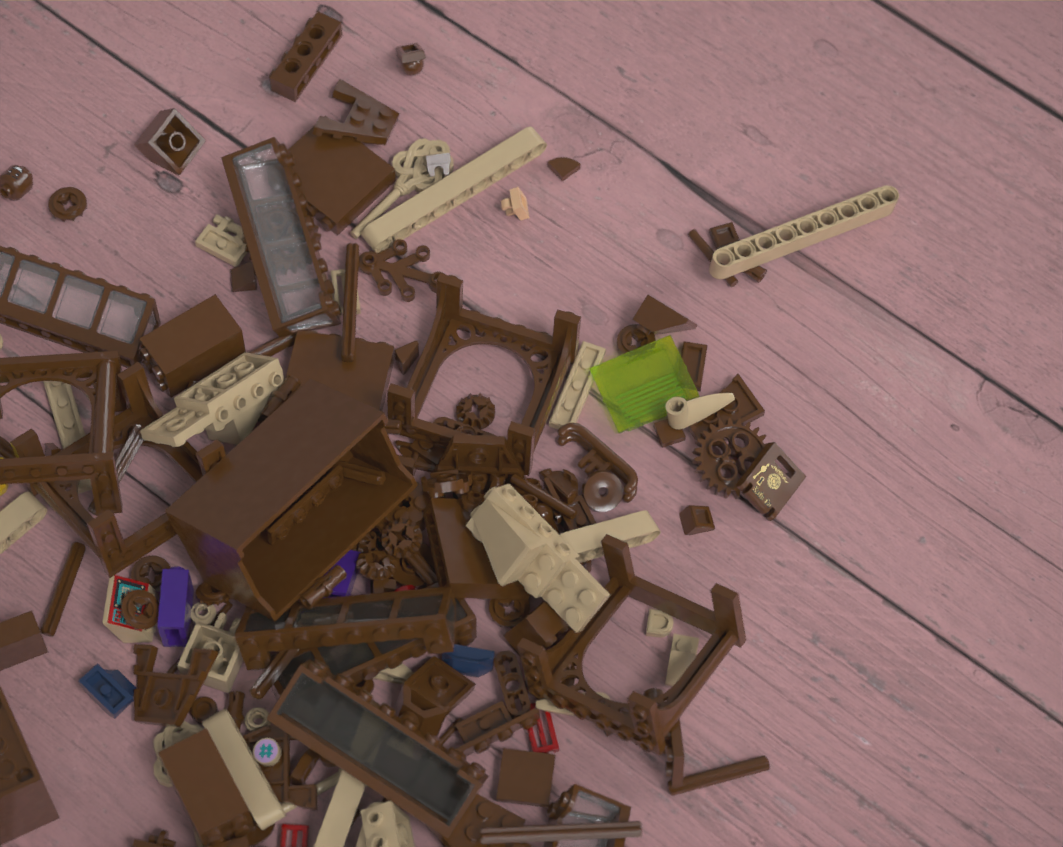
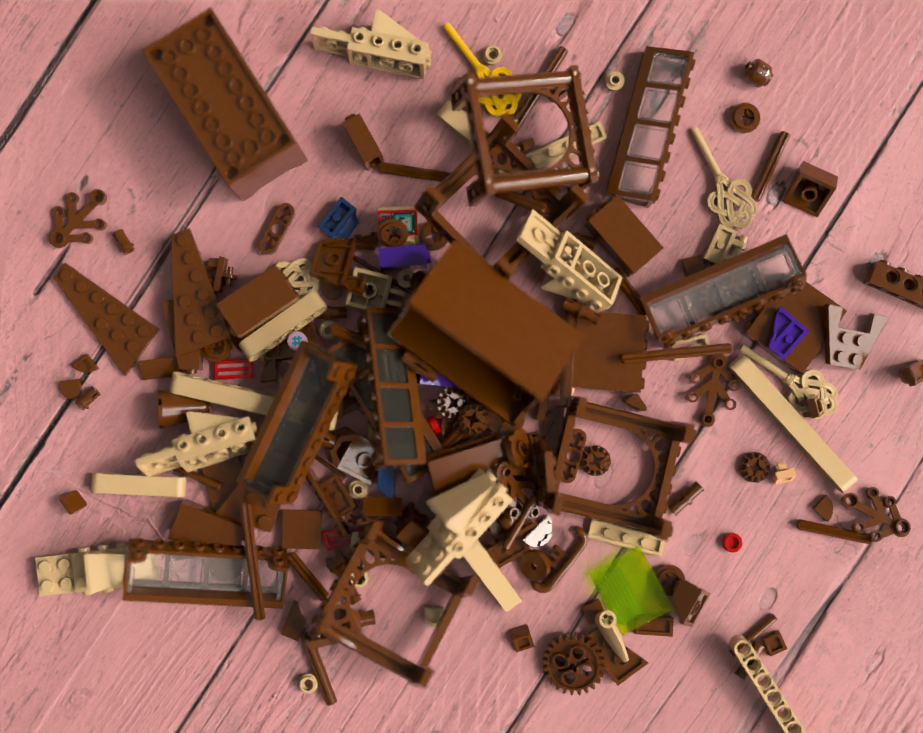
camera: 85 degrees right, 25 degrees up
(127, 778) = (288, 219): none -> reddish brown beam
(133, 183) = (770, 166): none -> reddish brown axle
(179, 210) = (733, 216): none -> tan piece
(343, 178) = (785, 334): none -> dark purple wing
(478, 707) = (354, 494): none -> tan plate
(506, 667) = (382, 507): none -> reddish brown slope
(509, 244) = (747, 472): none -> reddish brown gear
(534, 313) = (686, 498): none -> reddish brown pin
(578, 732) = (335, 564): none -> reddish brown tile
(593, 91) = (878, 515): none -> reddish brown plant
(593, 159) = (833, 531): none -> reddish brown axle
(595, 269) = (732, 542): none -> red tile
(598, 773) = (307, 576): none -> reddish brown axle
(654, 802) = (294, 623): none -> reddish brown tile
(682, 654) = (405, 635): tan slope -> none
(741, 784) = (308, 689): none -> tan plate
(768, 483) = (552, 693): reddish brown container -> none

